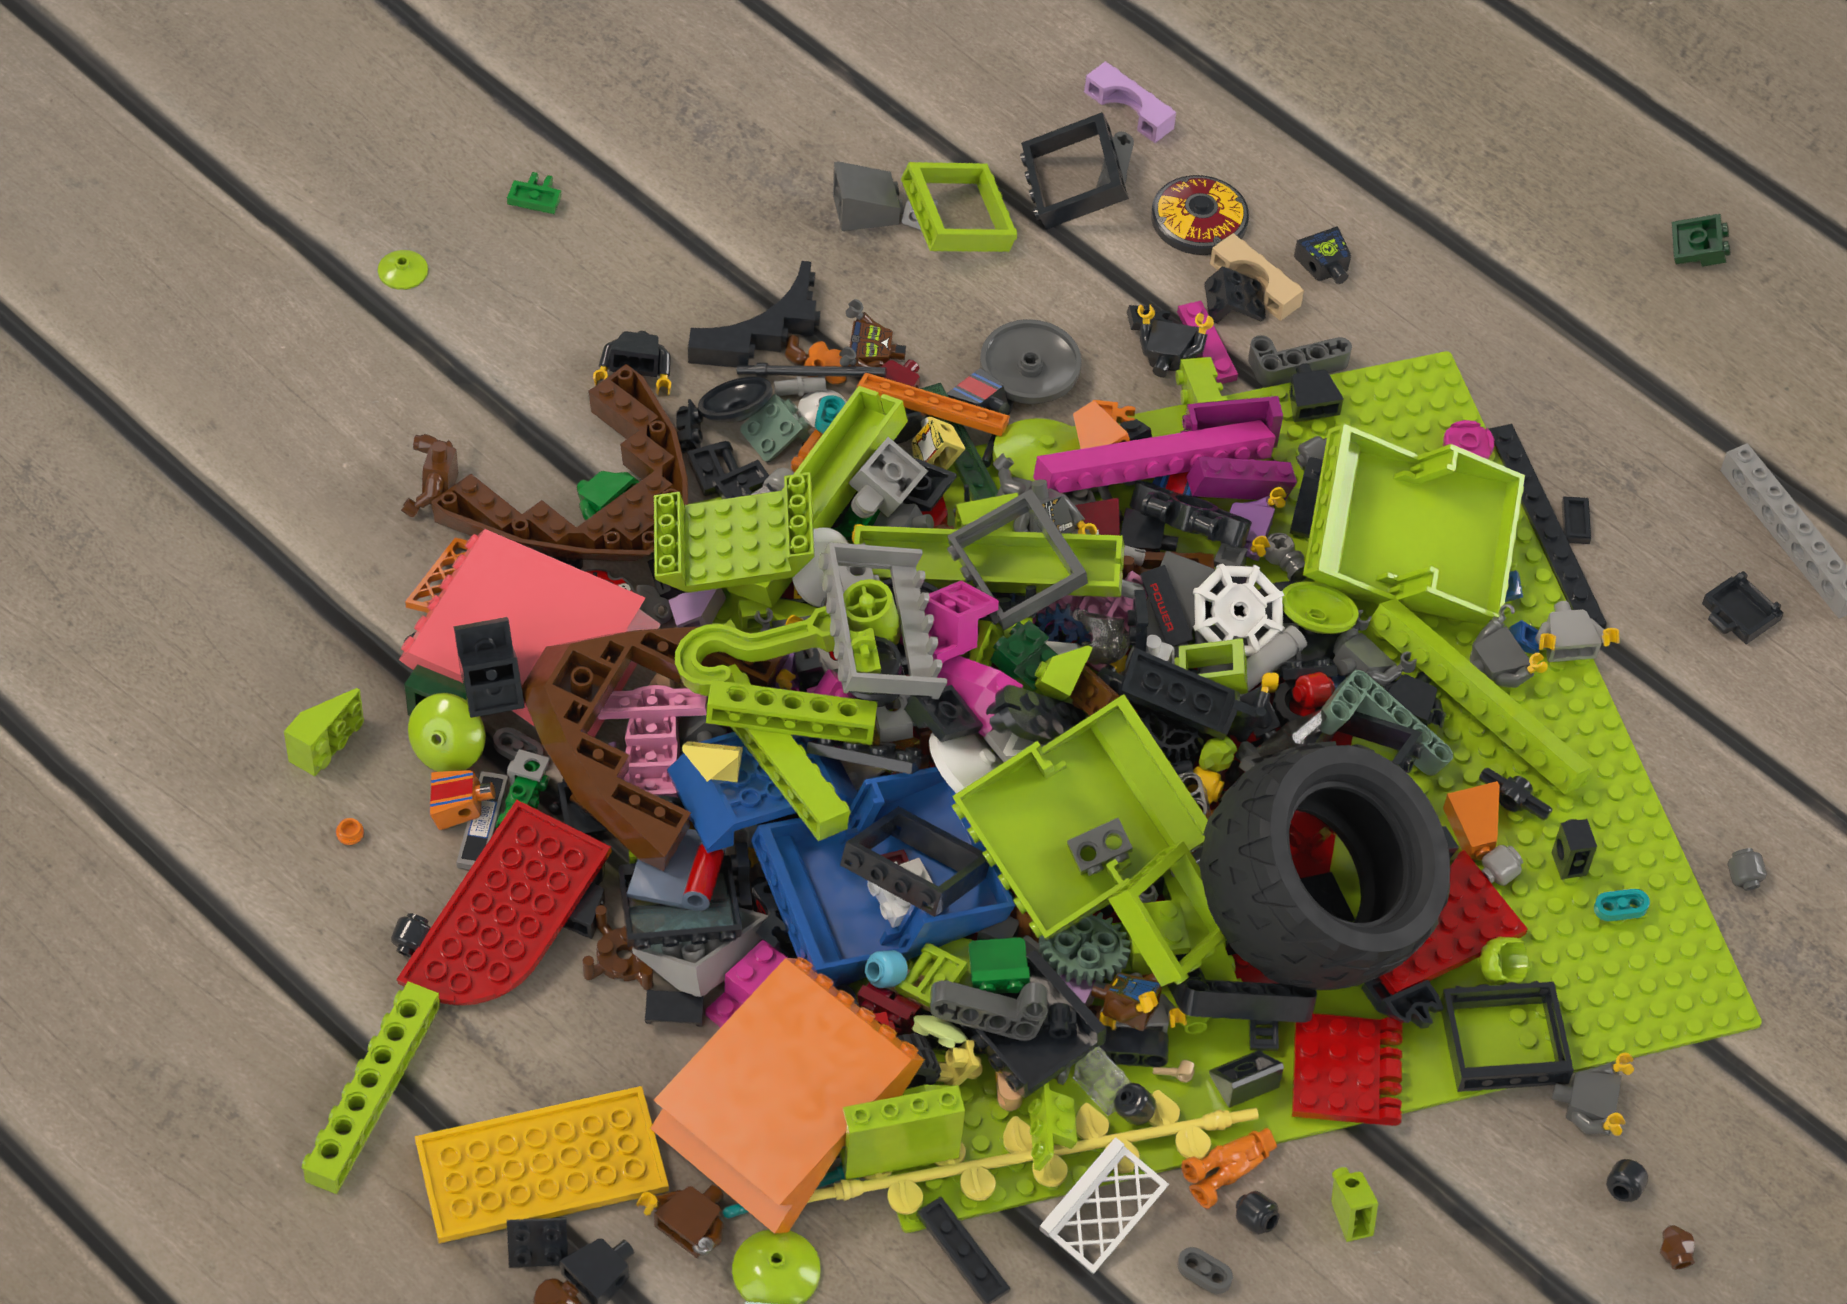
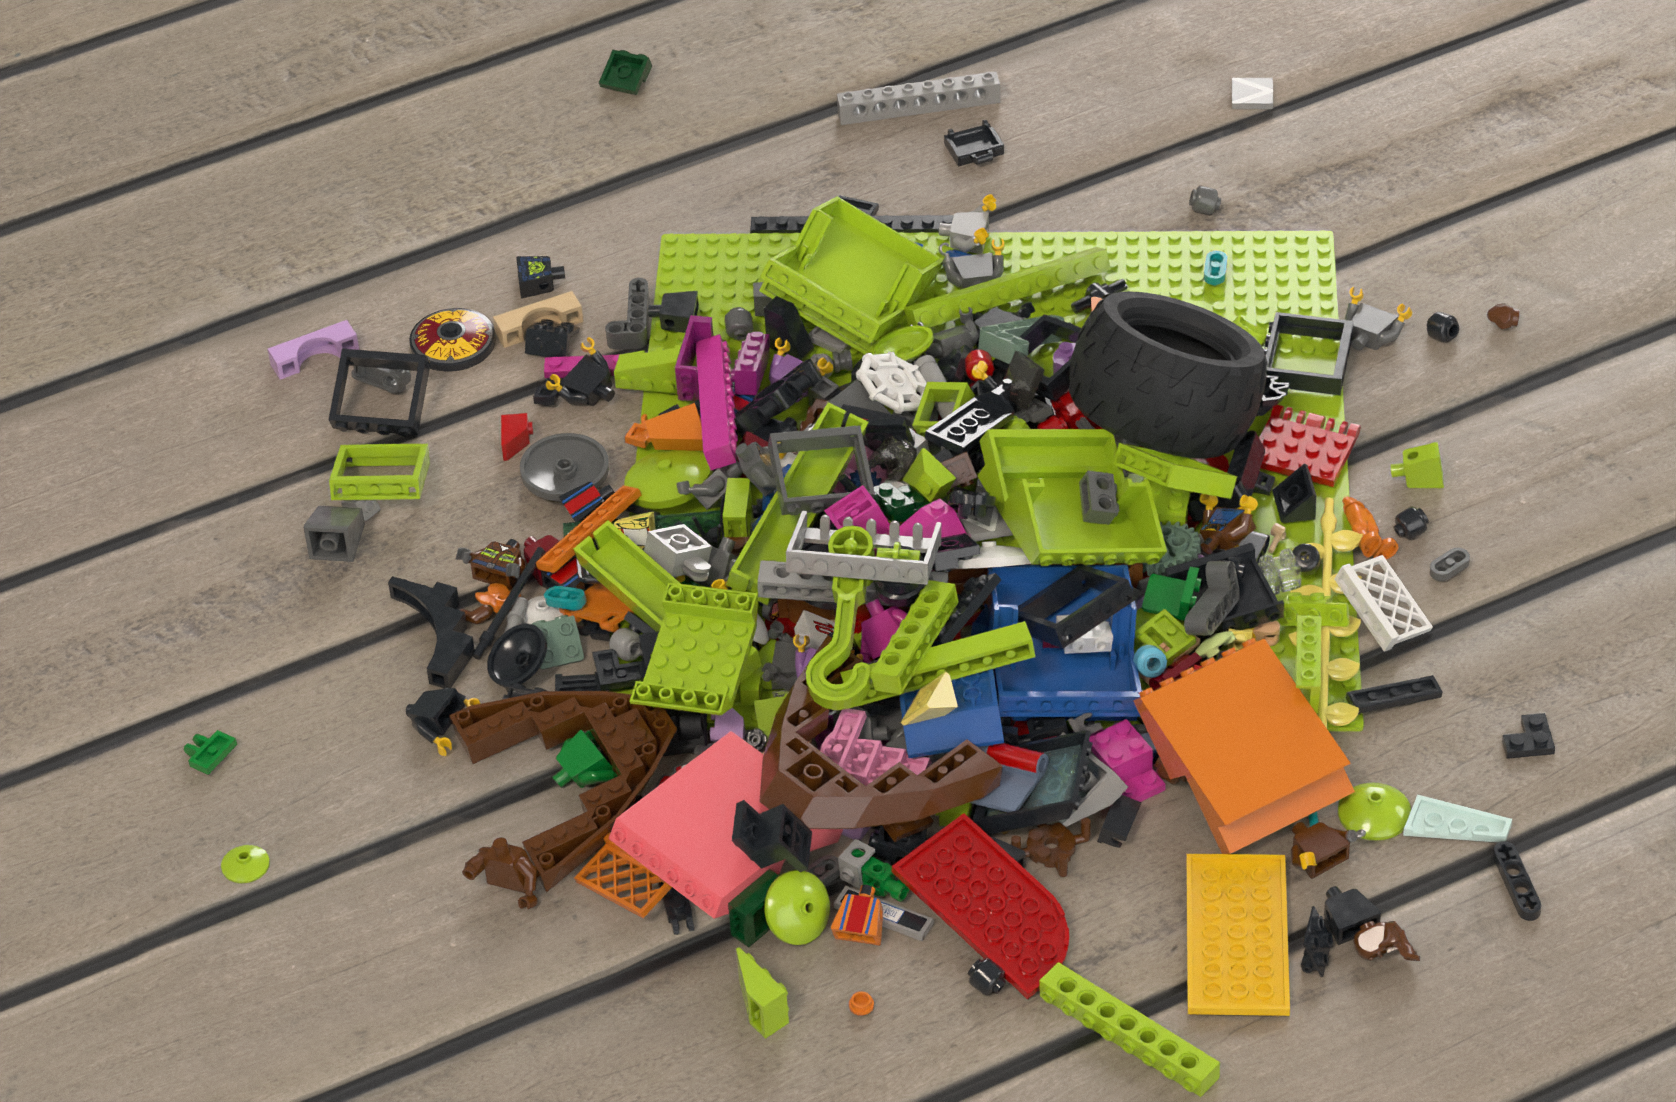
camera: 65 degrees left, 10 degrees down
(1068, 306) = (515, 434): none -> red slope
(1470, 437) = (761, 242): dark pink tile -> none
(1574, 848) = (1165, 272): black brick -> none

